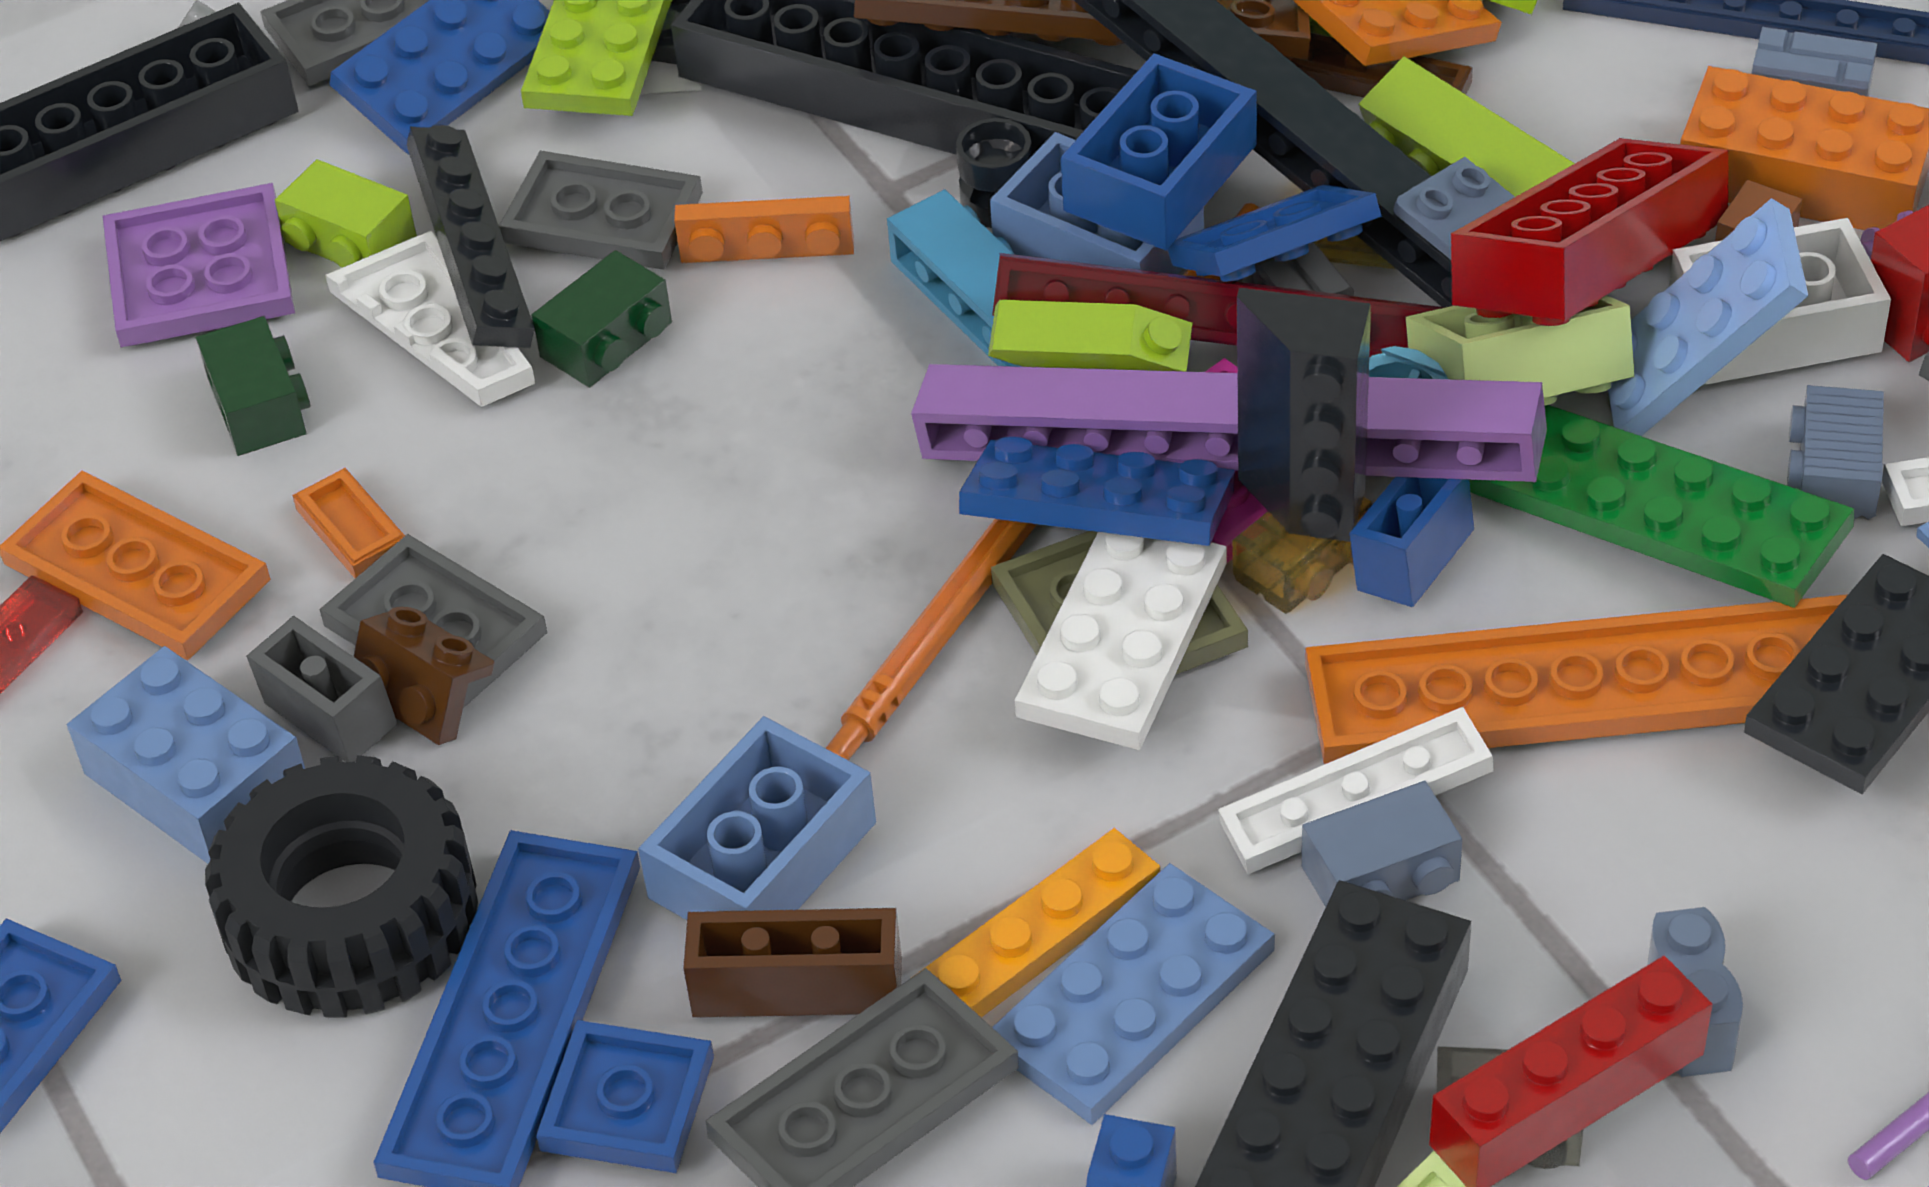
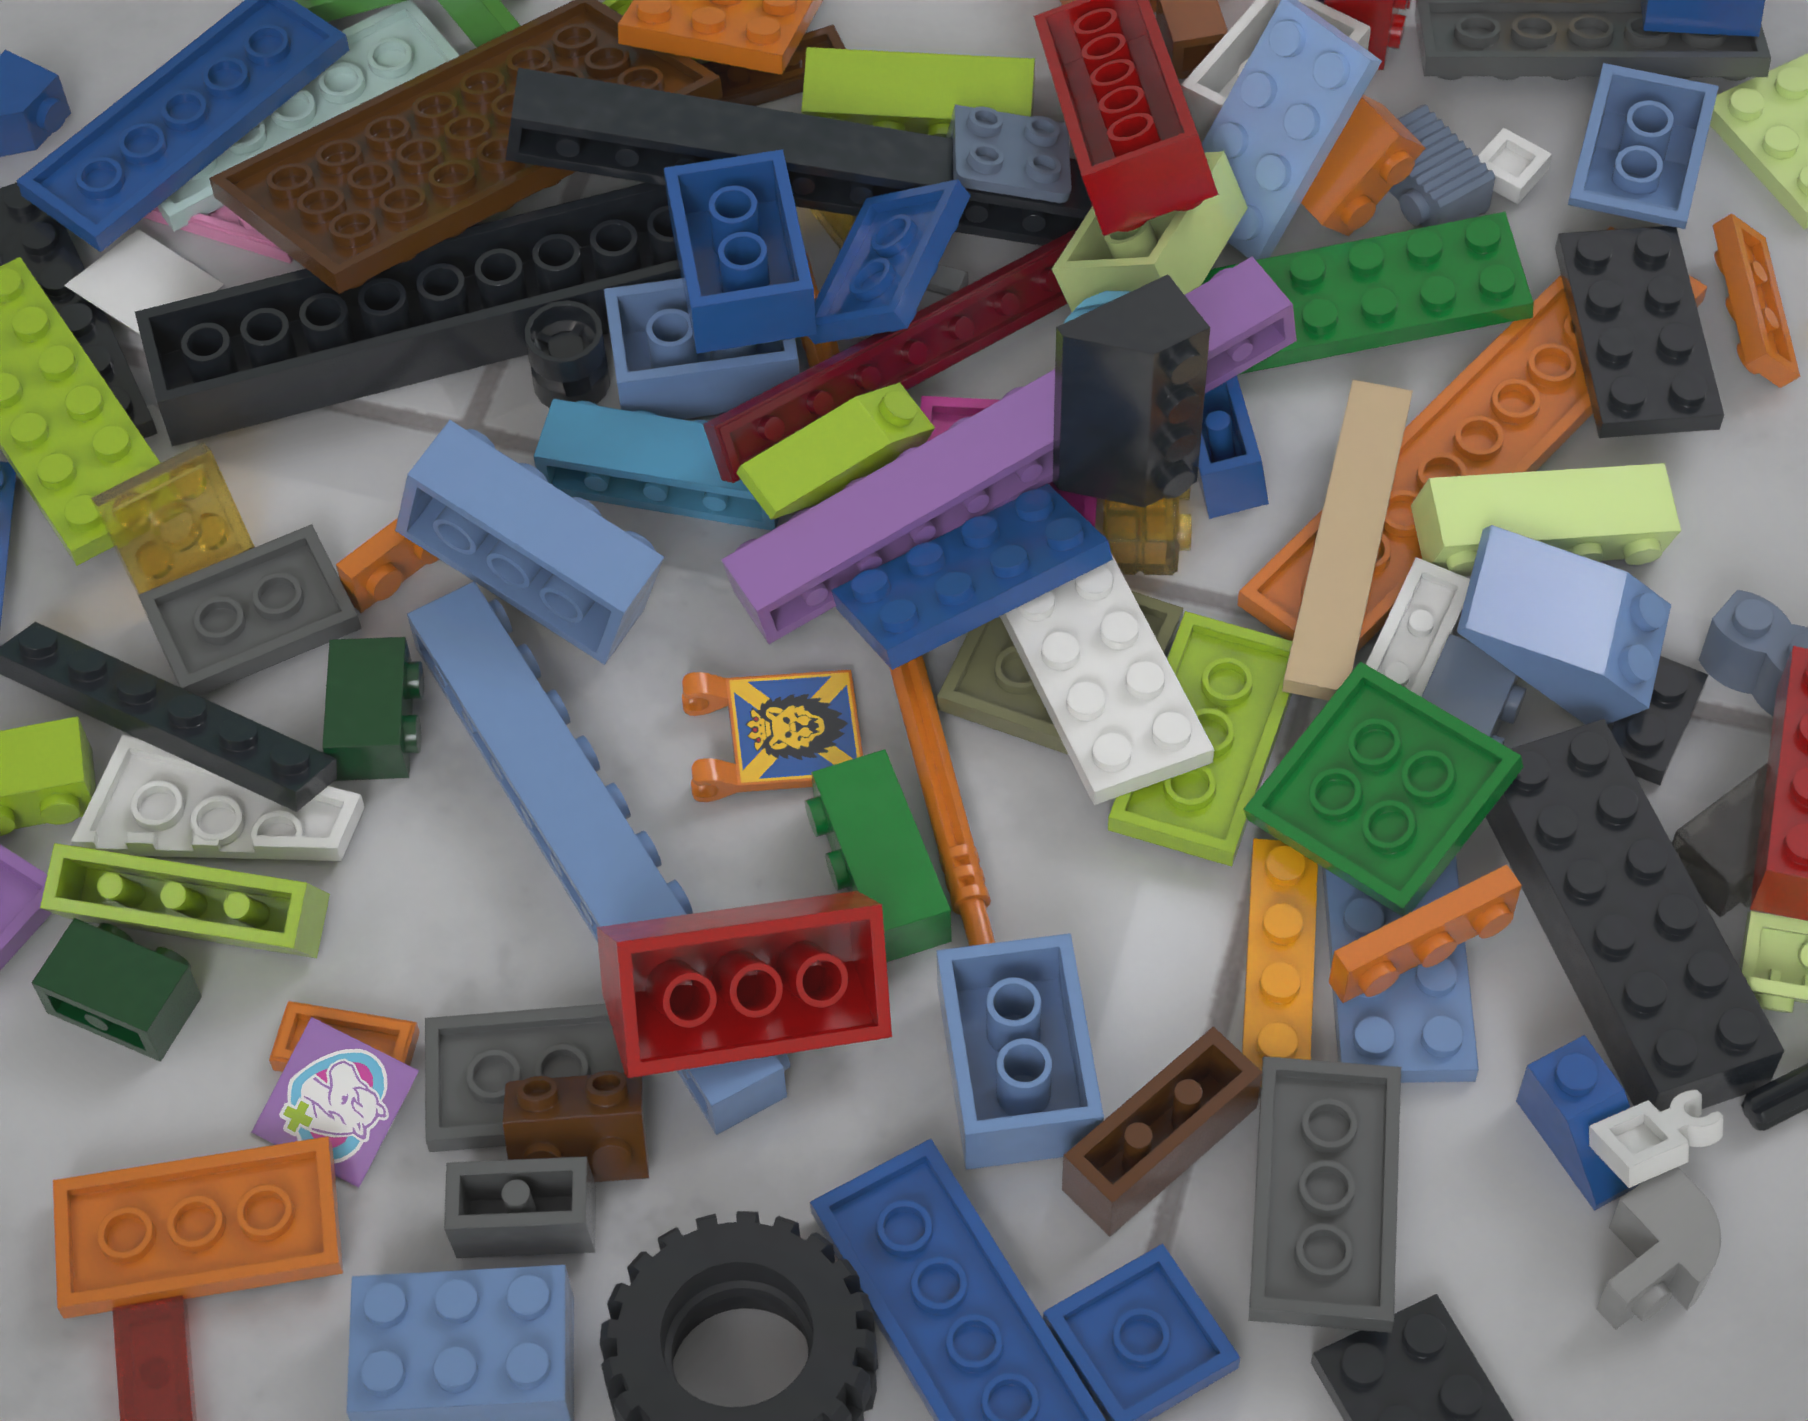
camera: 45 degrees left, 10 degrees up
(304, 548) = (339, 1092): none -> sticker
(345, 356) = (185, 900): none -> lime brick
(604, 108) = (173, 519): none -> clear yellow plate
(609, 641) = (745, 982): none -> red slope
(635, 519) = (567, 806): none -> medium blue brick
(804, 263) = (527, 541): none -> medium blue brick
(826, 645) = (880, 851): none -> green brick
(866, 526) = (778, 729): none -> flag
(1141, 969) = (1425, 935): none -> orange plate
(1214, 720) = (1237, 694): none -> lime plate
(1229, 846) = (1383, 789): none -> green plate
(1429, 664) = (1347, 540): none -> tan tile
(1520, 830) = (1565, 625): none -> slope
(1549, 973) = (1654, 734): none -> black plate
(1613, 754) = (1582, 510): none -> yellowish green brick
(1763, 396) = (1362, 168): none -> orange brick

